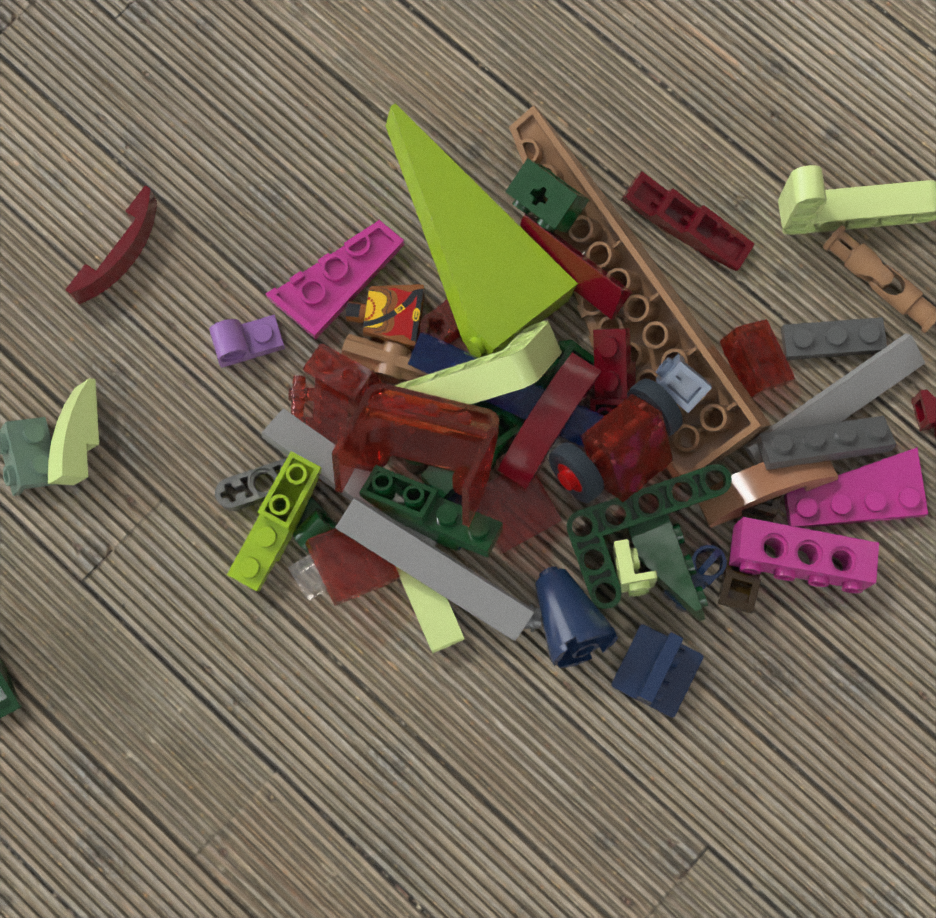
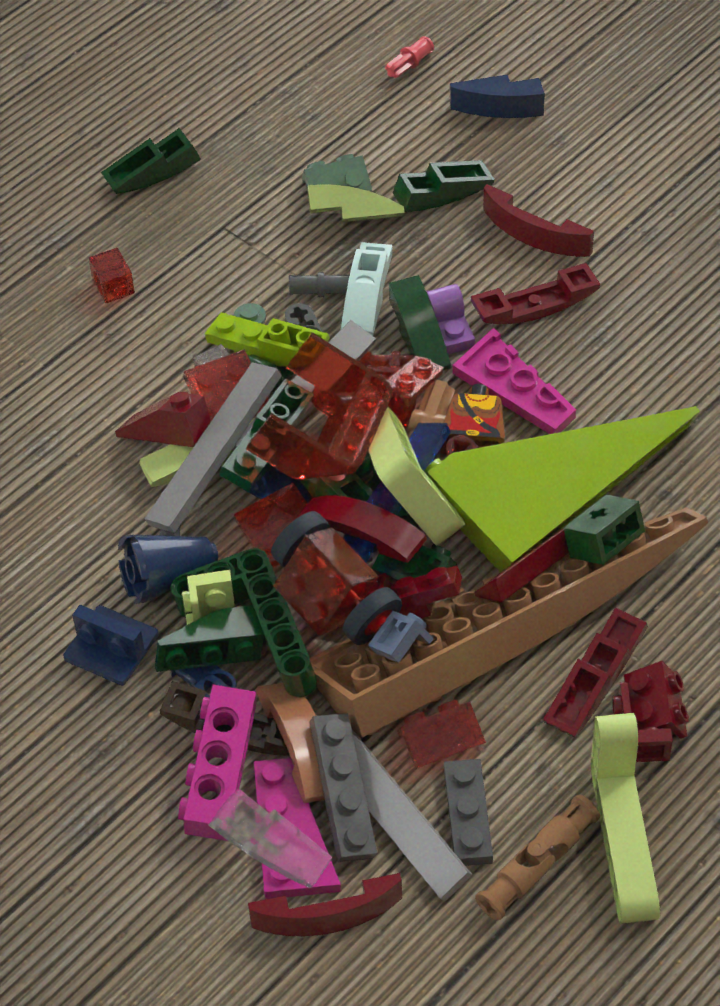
camera: 90 degrees right, 25 degrees down
(46, 342) = (441, 184): none -> dark green slope
(159, 699) = (111, 275): none -> clear red brick
(186, 471) = (318, 284): none -> dark grey pin
(201, 419) = (366, 285): none -> light aqua slope
(221, 250) = (538, 301): none -> dark red slope
(225, 545) = (251, 312): none -> sand green plate
(254, 368) = (418, 321): none -> dark green slope
(391, 624) = (171, 421): none -> dark red slope
(720, 174) = (657, 698): none -> dark red bracket
(760, 197) = (653, 743): none -> dark red bracket
(893, 505) = (270, 839): none -> clear slope

